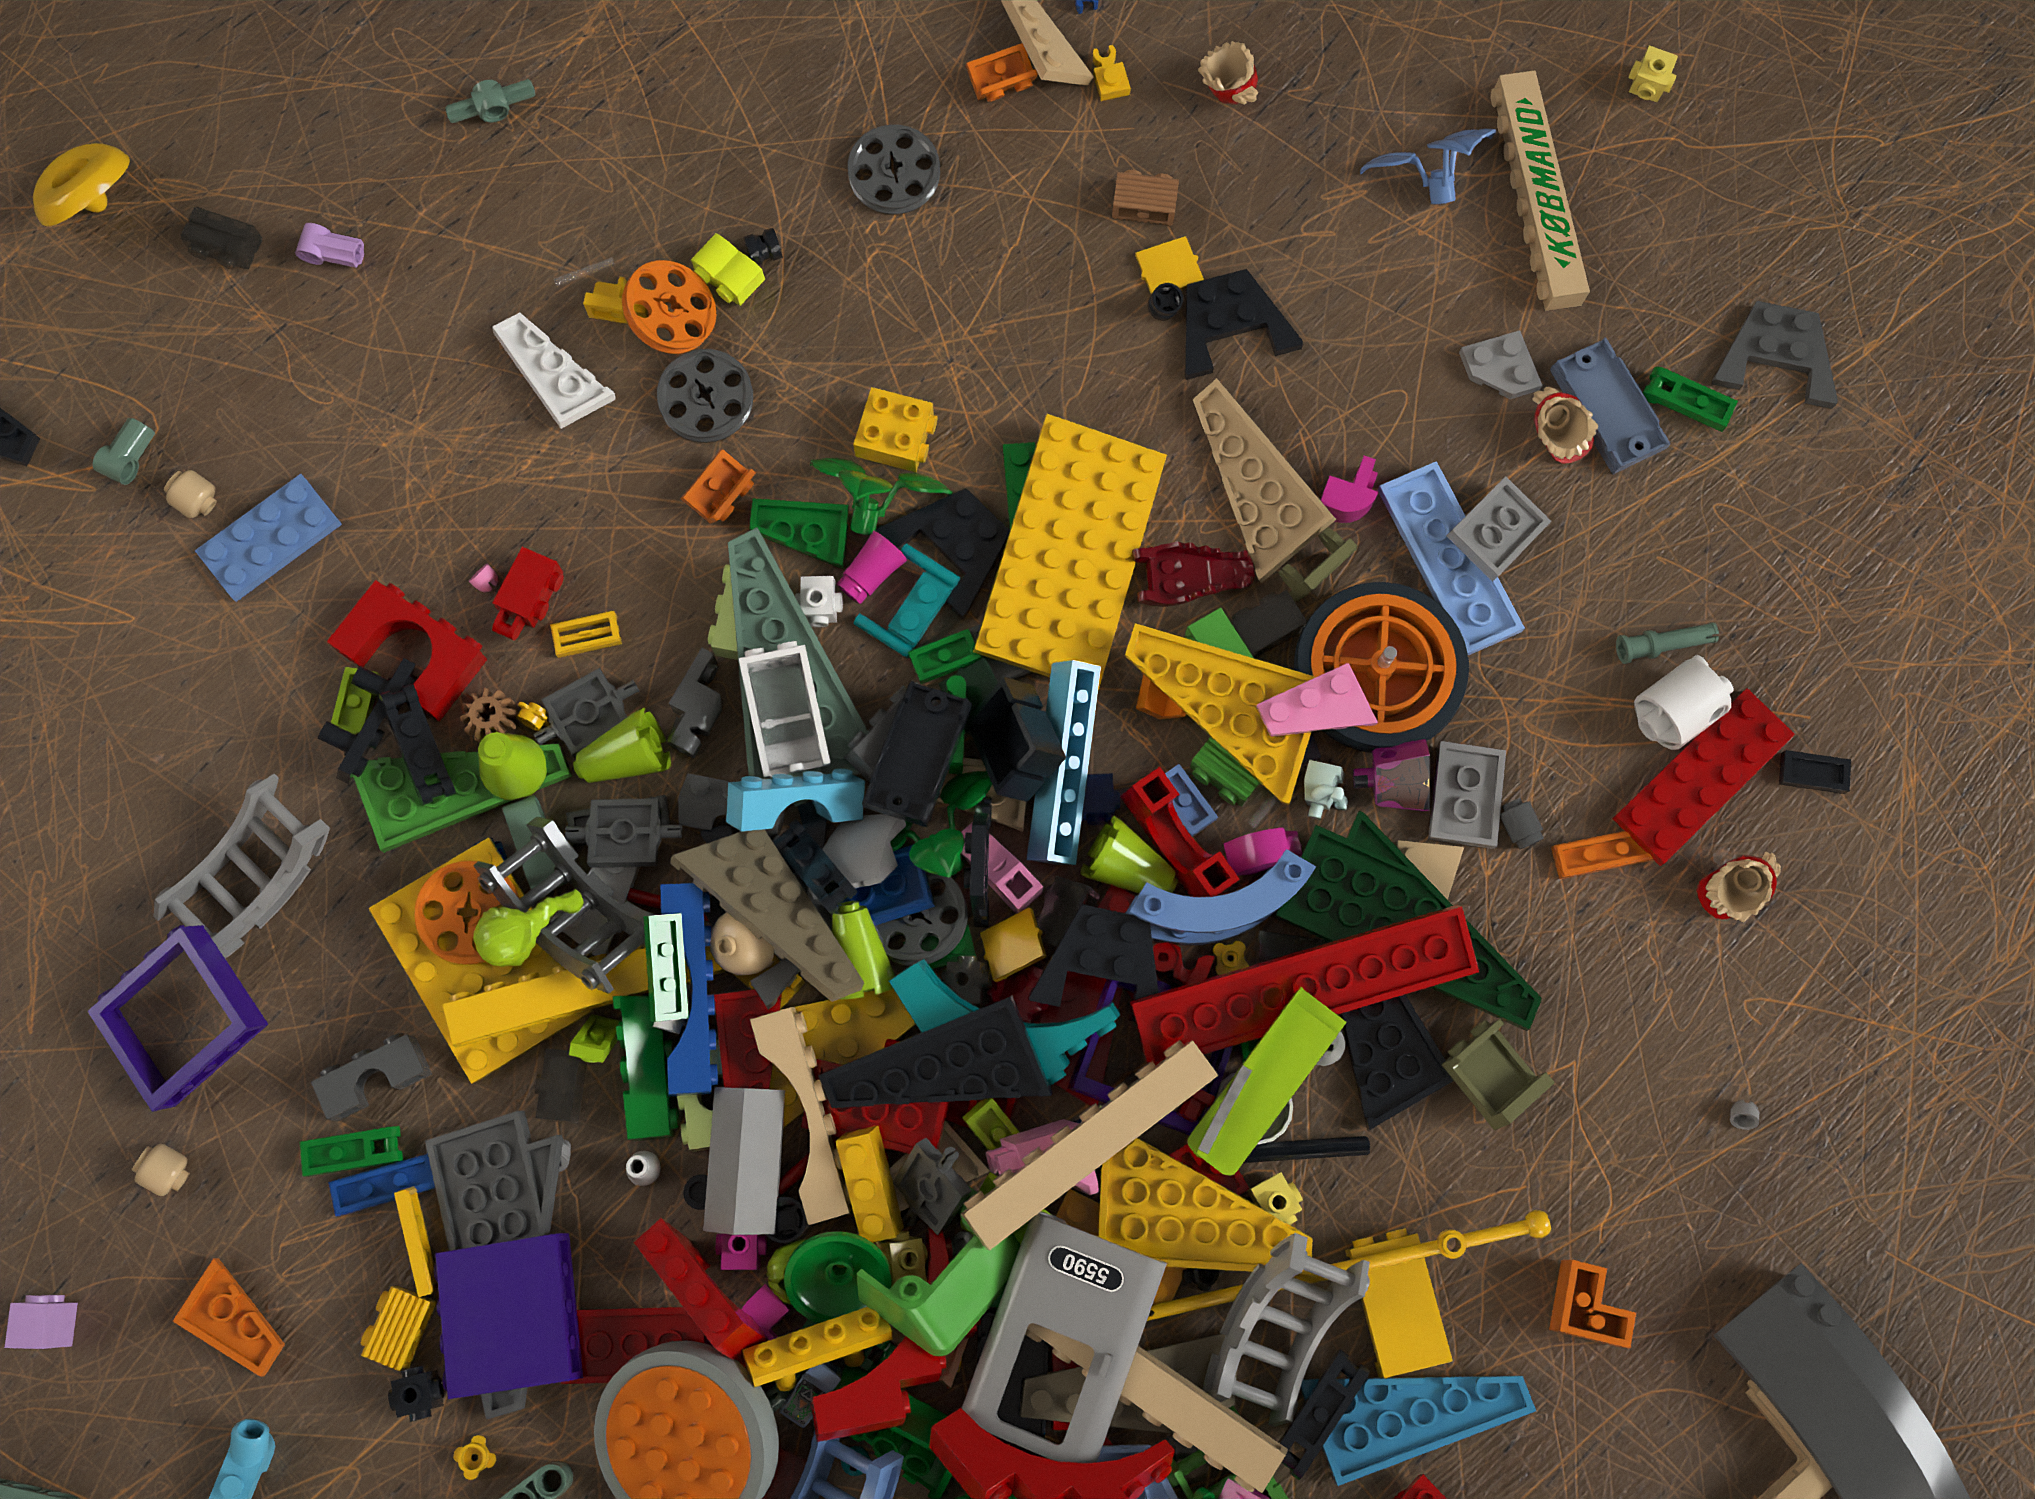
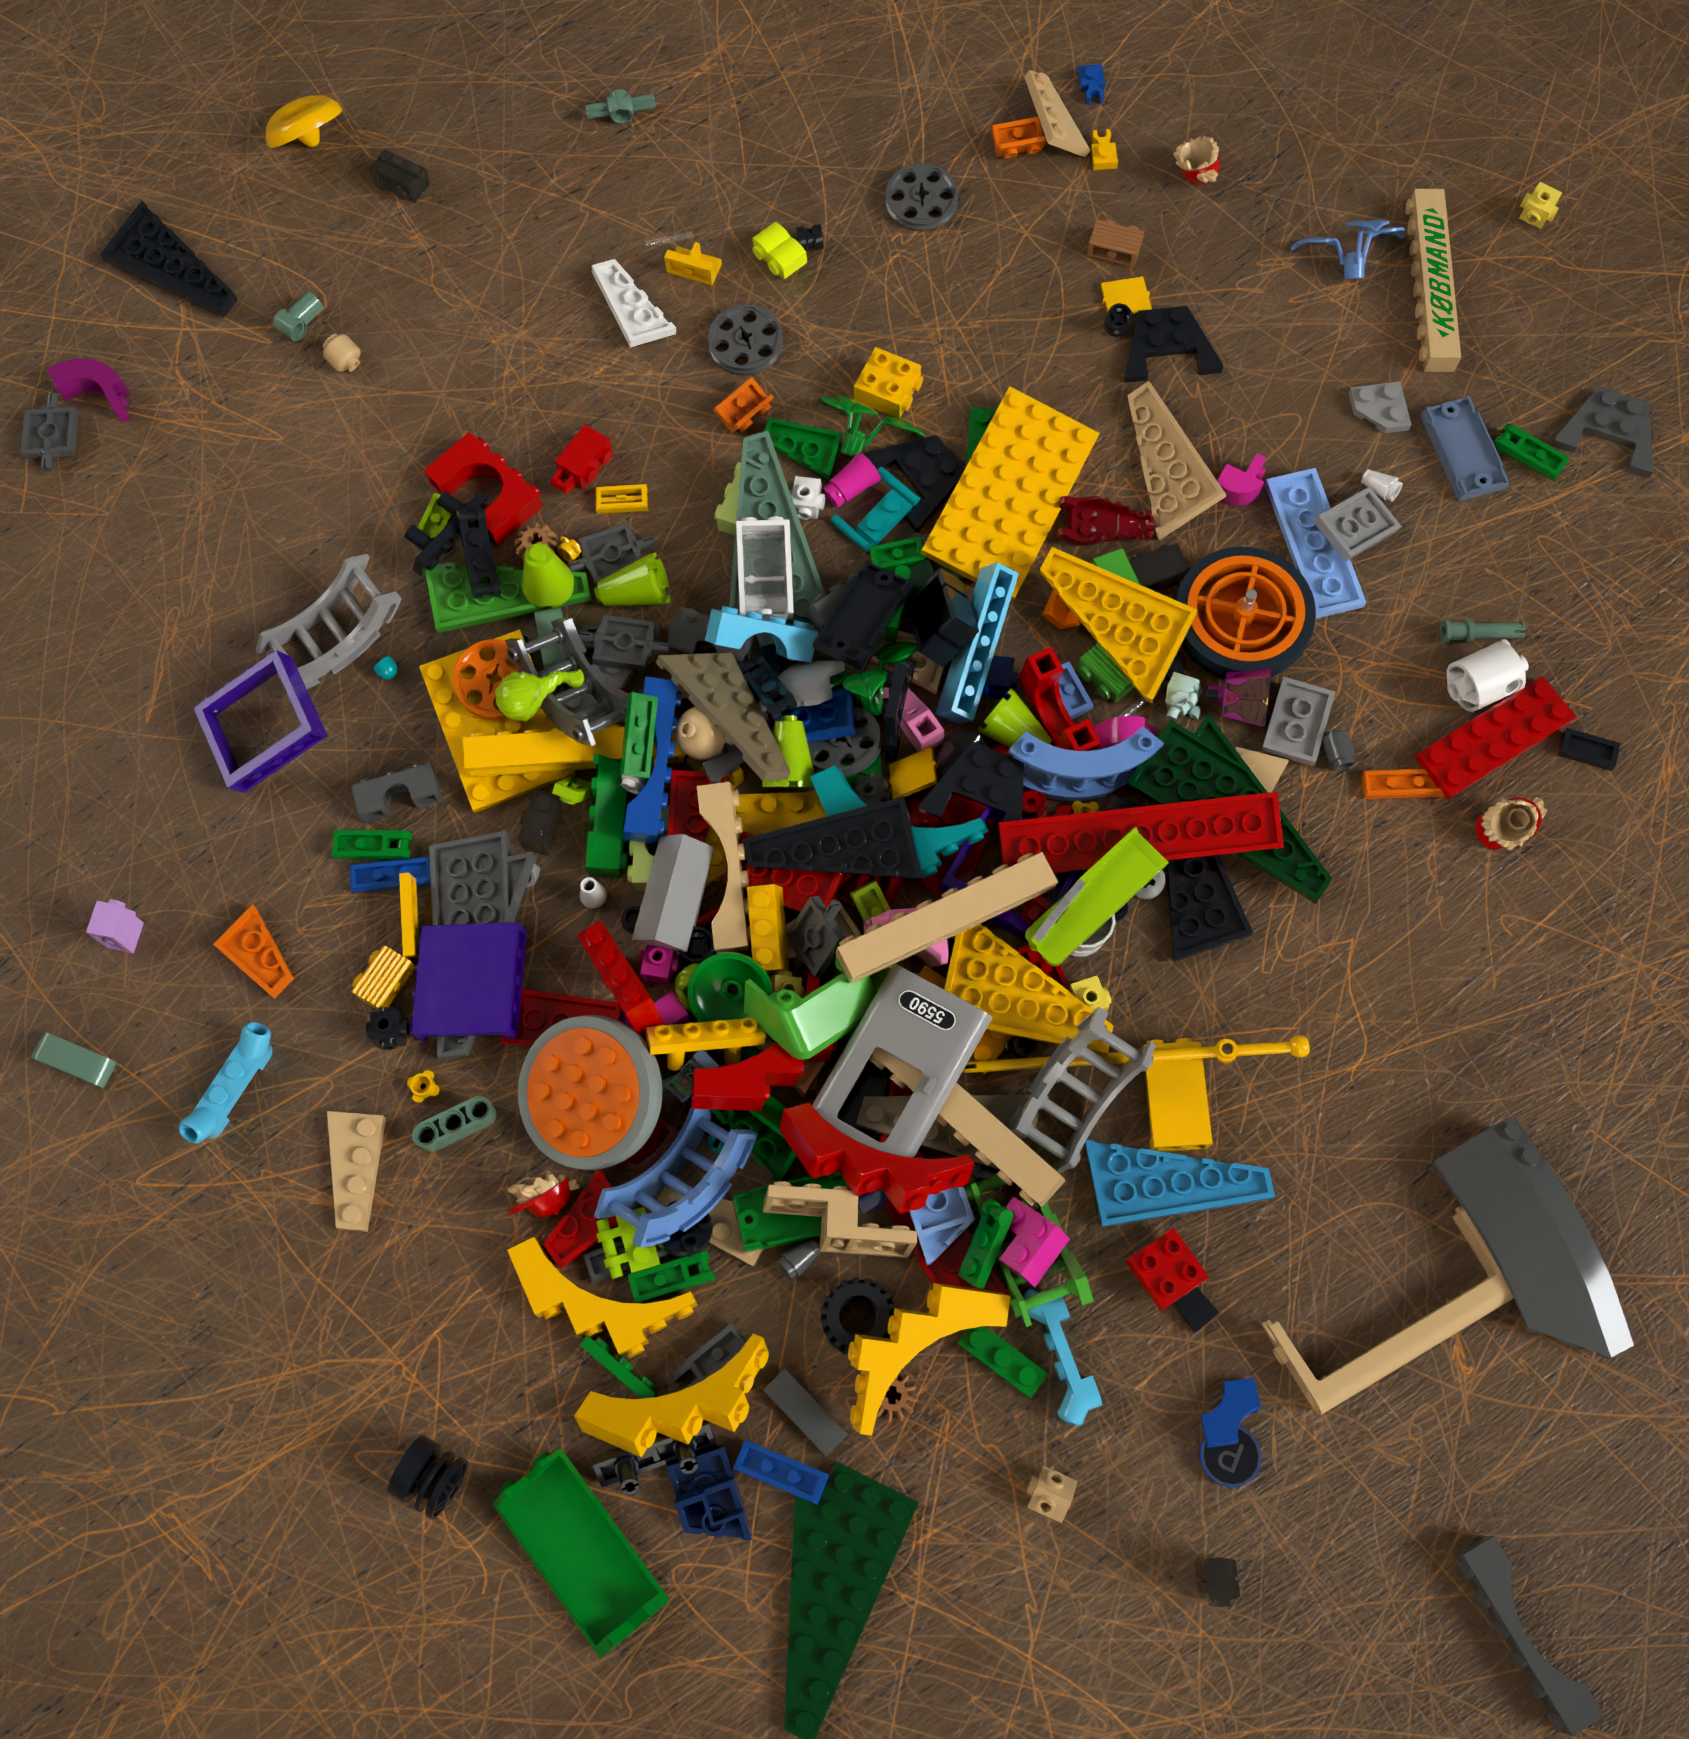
camera: 15 degrees right, 5 degrees down
(160, 1169) = (225, 833): tan head -> none
(268, 537) = (394, 394): medium blue plate -> none
(321, 245) = (472, 190): lavender piece -> none
(327, 912) = (386, 668): none -> teal hinge
(482, 577) = (551, 447): bright pink hinge -> none
(658, 311) = (720, 264): orange wedge -> none
(696, 705) = (696, 561): dark grey plate -> none
(1309, 1149) = (1118, 967): black axle -> none
(1318, 704) = (1189, 625): bright pink wing -> none
(1321, 1412) = (1097, 1165): black plate -> none
(1339, 551) = (1208, 533): olive piece -> none
(1494, 1075) = (1283, 933): olive panel -> none
(1519, 469) = (1382, 484): none -> white cone
(1563, 425) = (1423, 455): tan hair -> none
(1579, 1307) = (1326, 1127): orange brick -> none
(1743, 1122) = (1485, 1007): light grey hinge -> none

